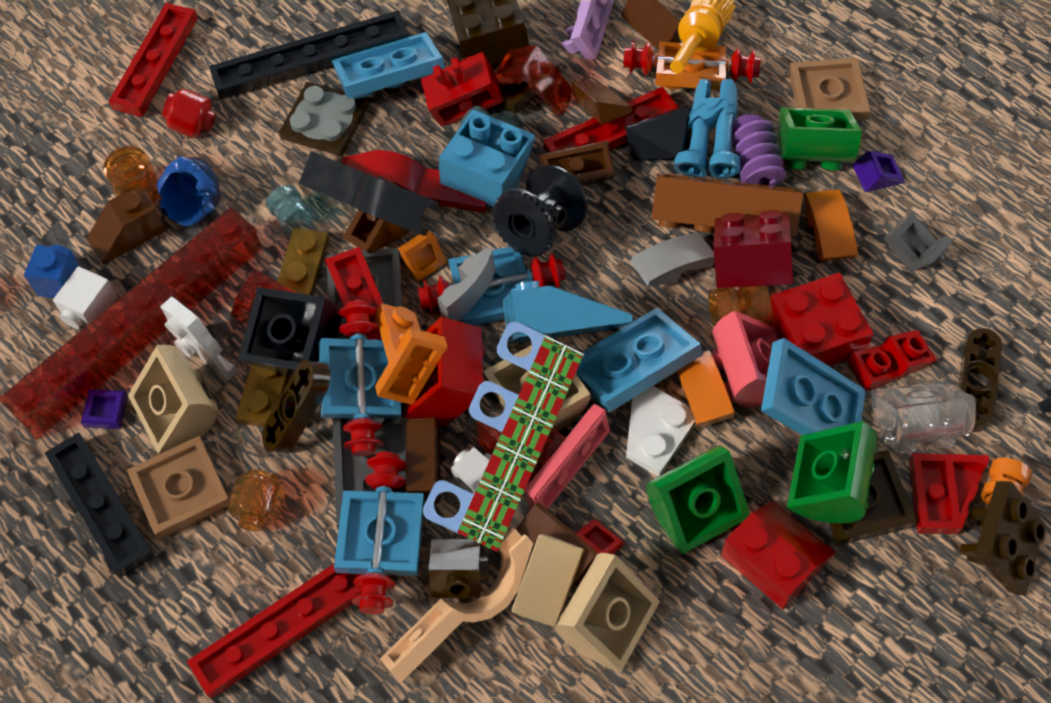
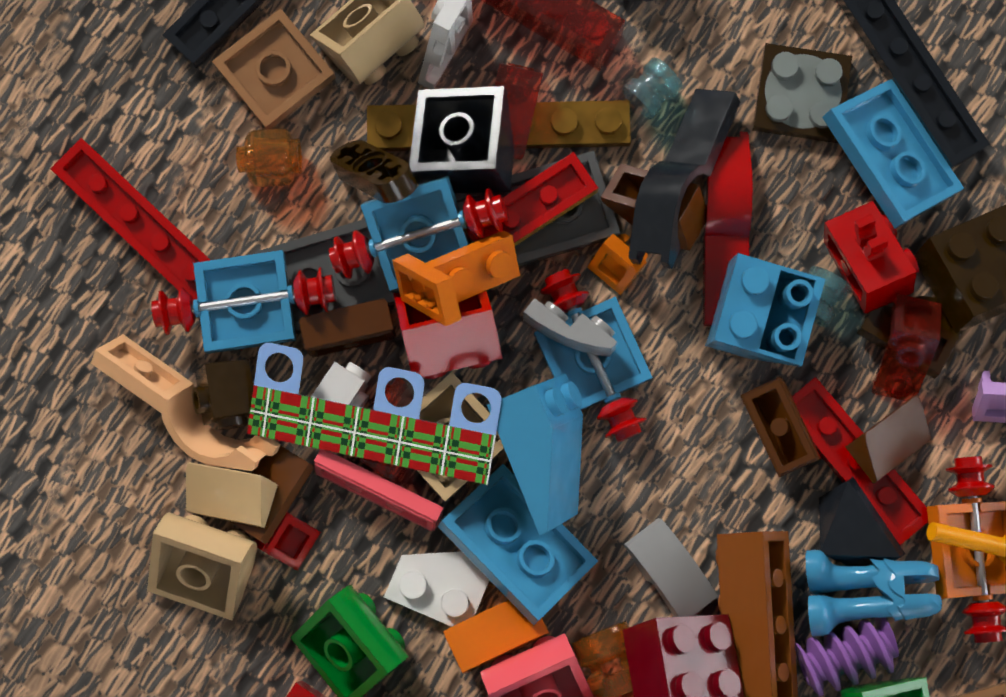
camera: 80 degrees right, 20 degrees up
(531, 216) = (694, 402): black hose -> none

